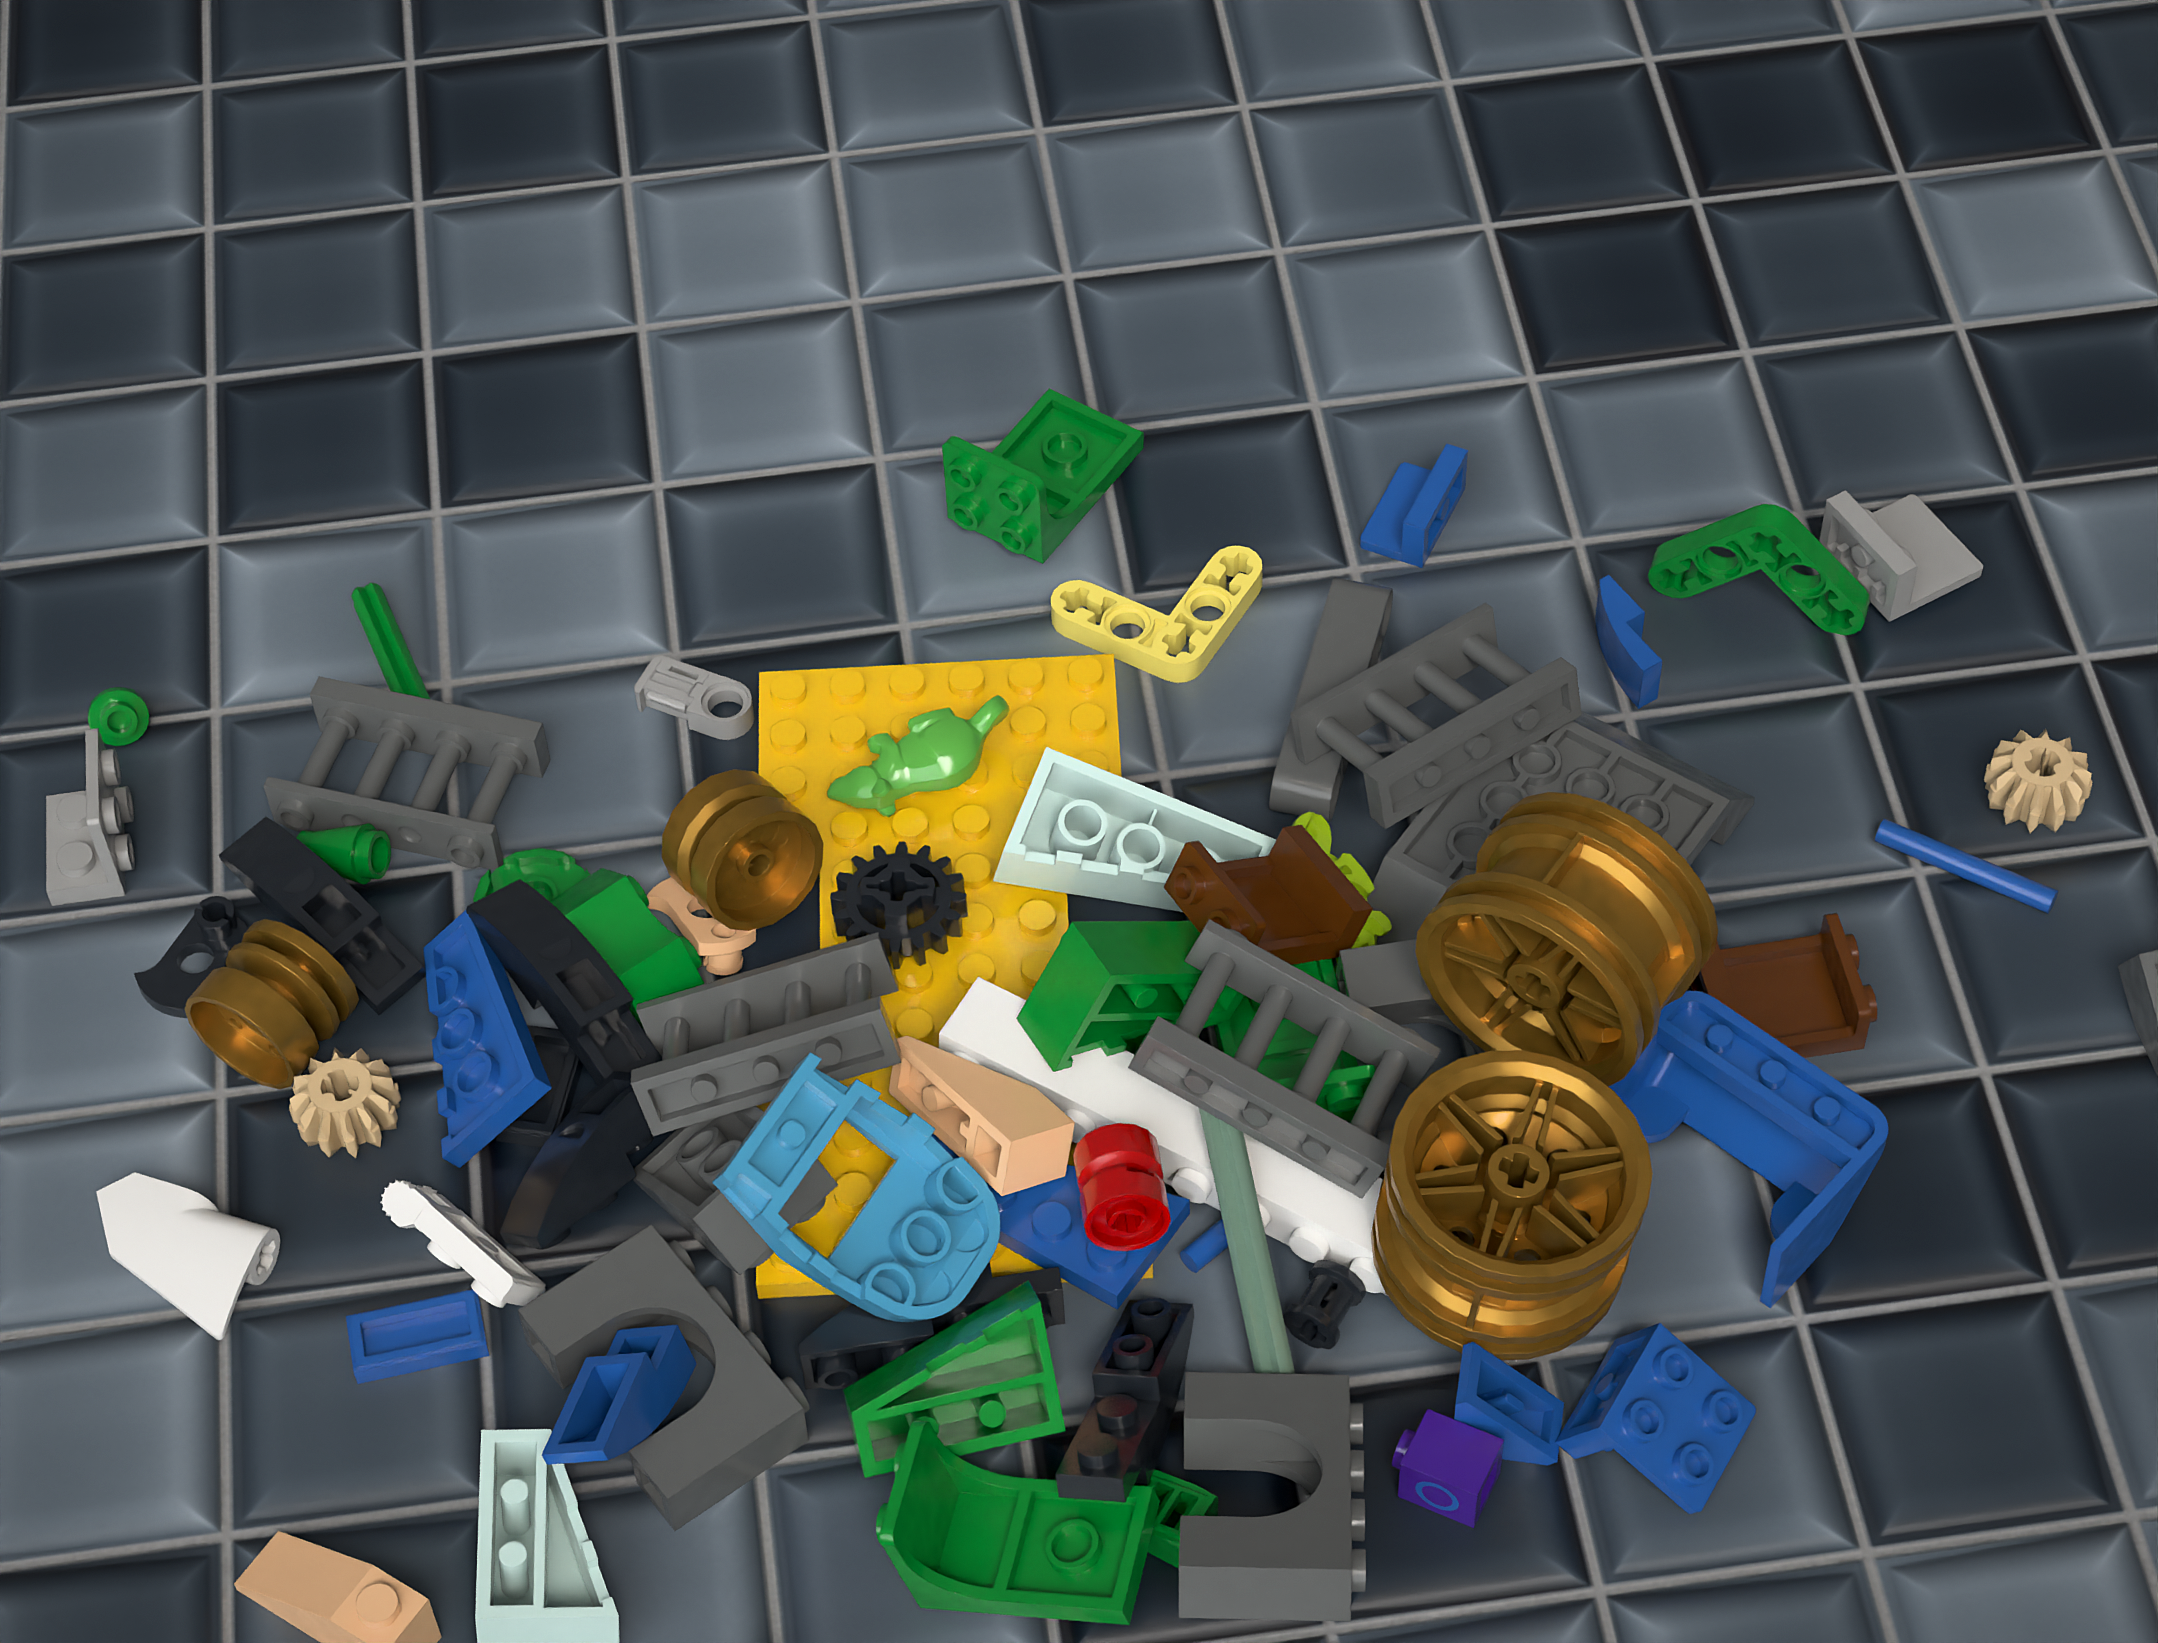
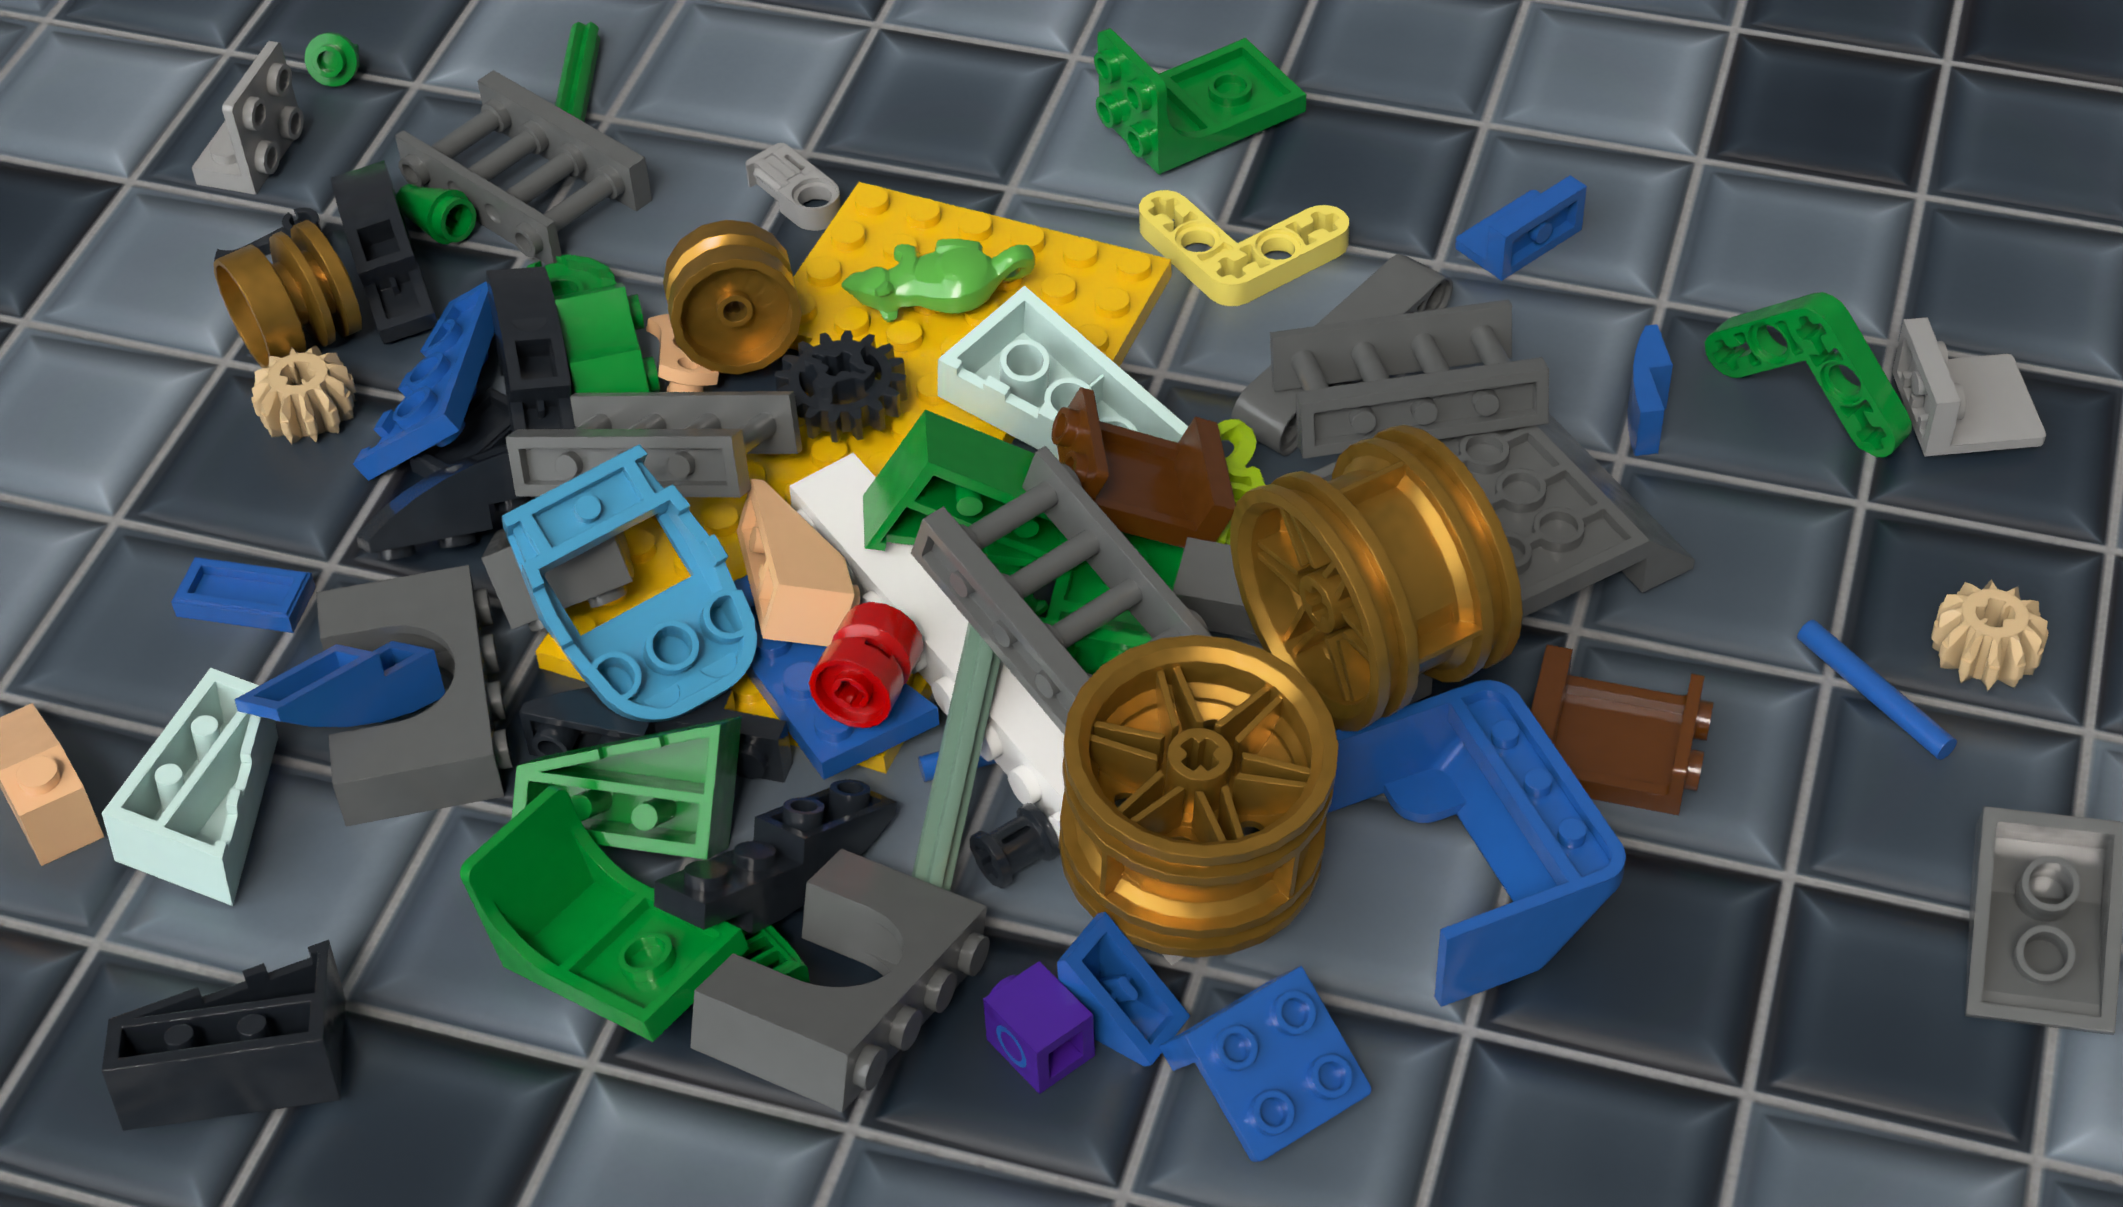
camera: 25 degrees right, 5 degrees down
(185, 1247) = (107, 458): white panel -> none
(462, 1244) = (318, 528): white hinge -> none

